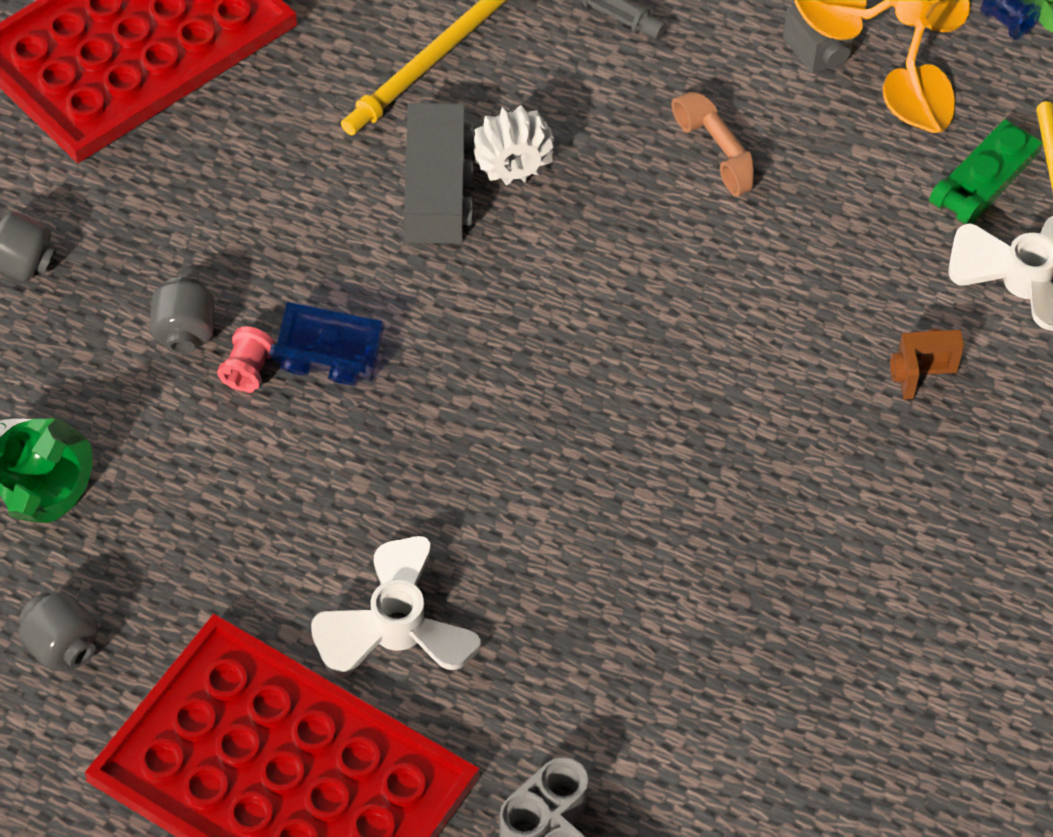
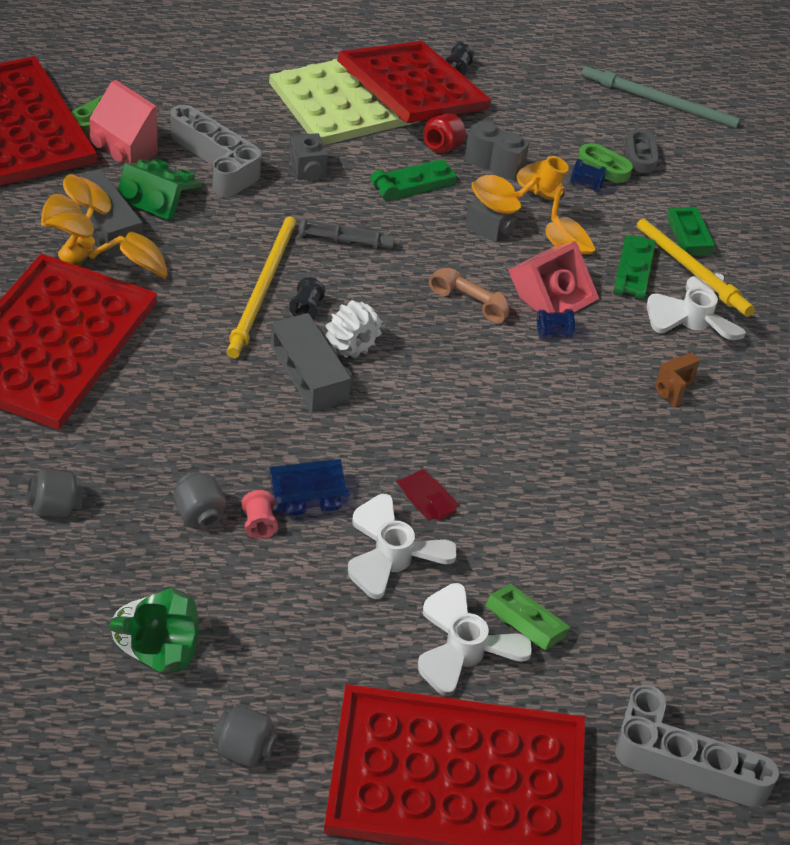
camera: 30 degrees left, 10 degrees down
(341, 481) = (393, 546): none -> white piece
(483, 407) = (428, 495): none -> dark red piece
(488, 80) = (306, 297): none -> black bush
(495, 614) = (527, 616): none -> bright green plate
(806, 222) = (555, 323): none -> clear blue bush
(846, 162) = (555, 280): none -> coral slope

